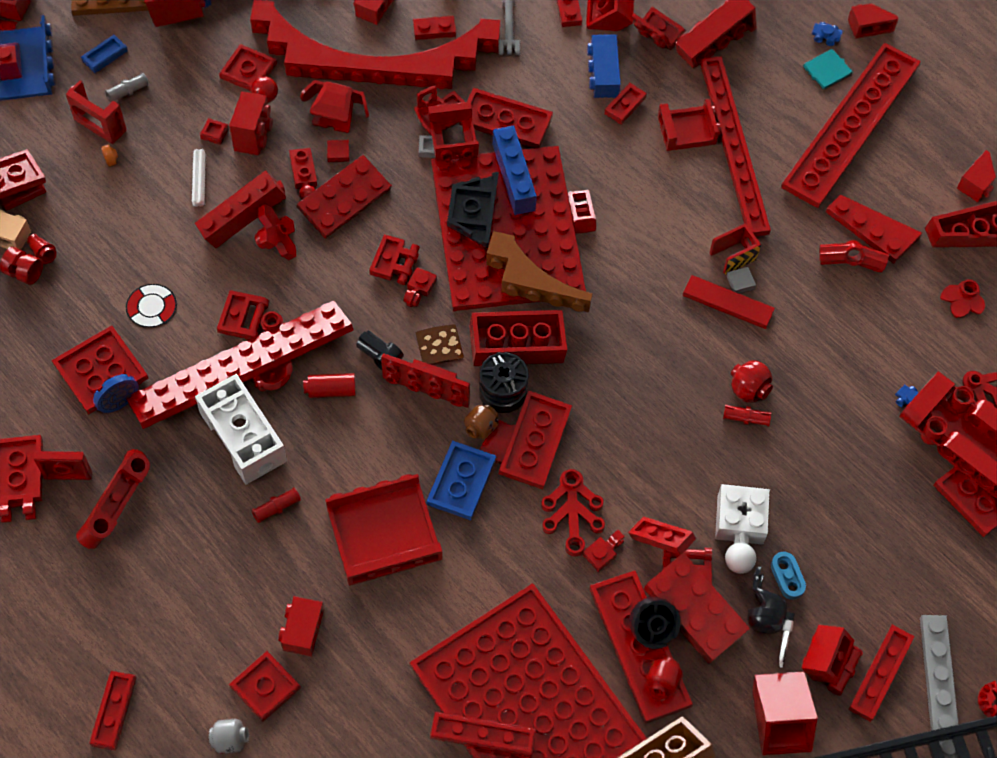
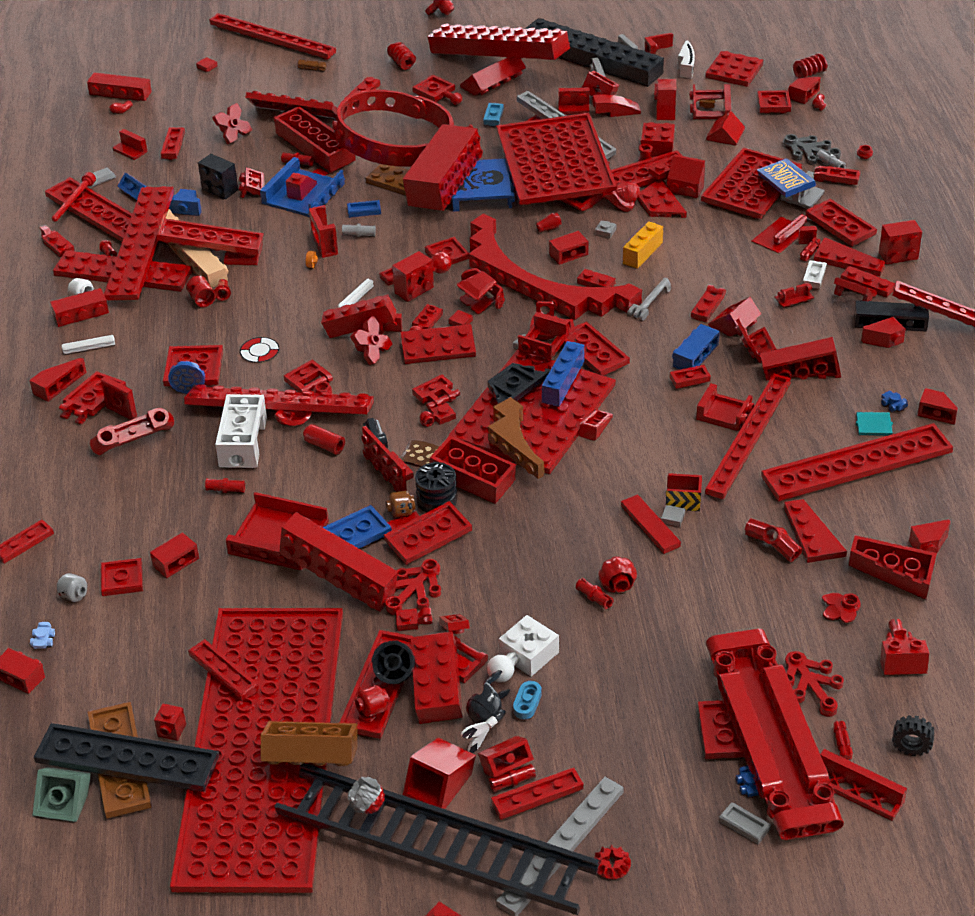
camera: 40 degrees right, 20 degrees down
(496, 537) = (337, 561): none -> red brick

